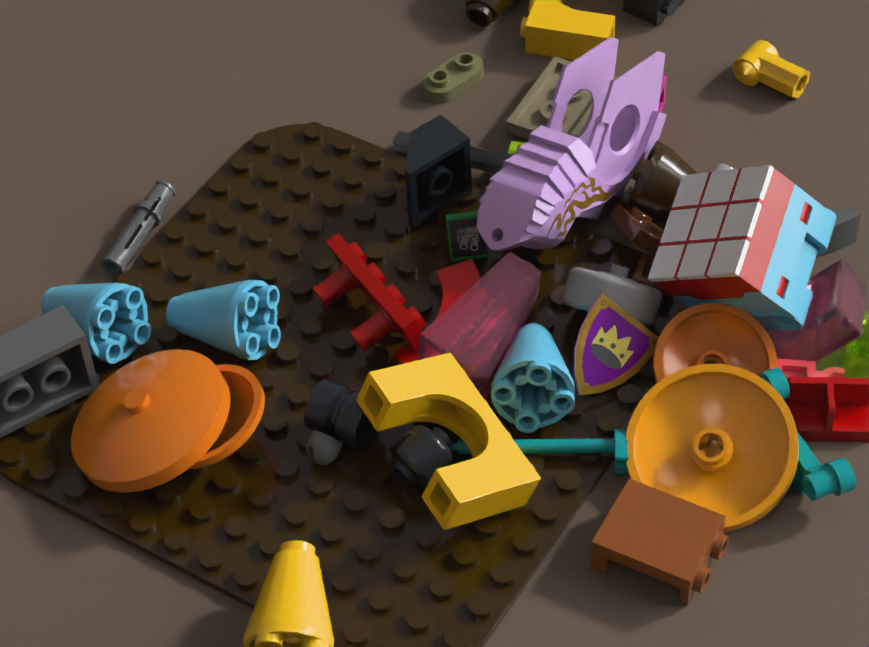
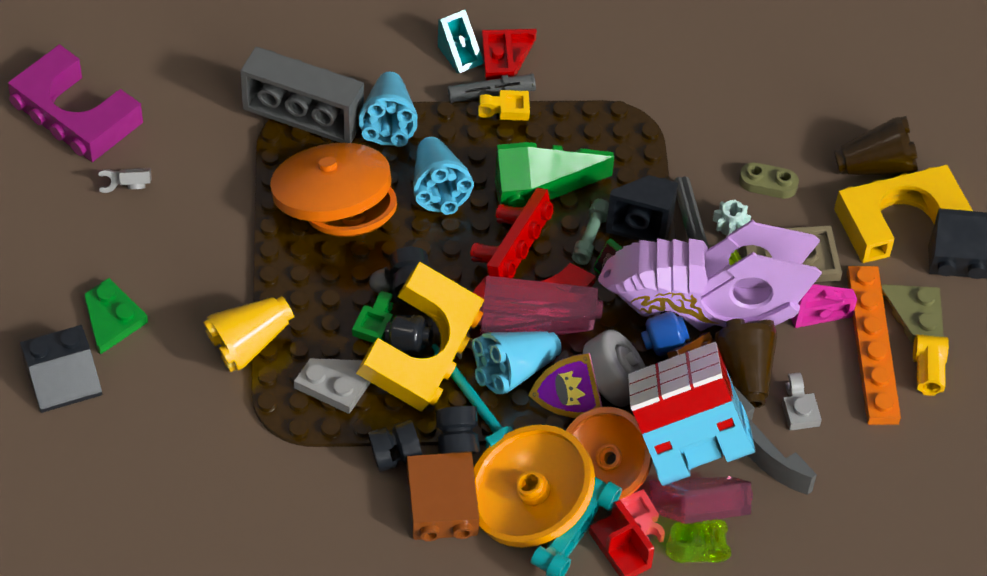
camera: 50 degrees right, 5 degrees up
(54, 222) = (458, 42): none -> teal slope
(101, 193) = (506, 51): none -> red wing
(182, 216) = (509, 105): none -> yellow plate
(298, 233) = (525, 167): none -> wedge
(373, 482) = (373, 321): none -> green plate
(425, 565) = (332, 382): none -> light grey wing
(427, 253) = (584, 248): none -> sand green bar
(481, 122) = (731, 216): none -> light aqua gear
(561, 549) = (383, 442): none -> black wheel
(590, 477) = (457, 430): none -> black wheel
(598, 236) = (664, 333): none -> blue head
(701, 52) = (916, 309): none -> olive wing
(732, 108) = (873, 347): none -> orange plate

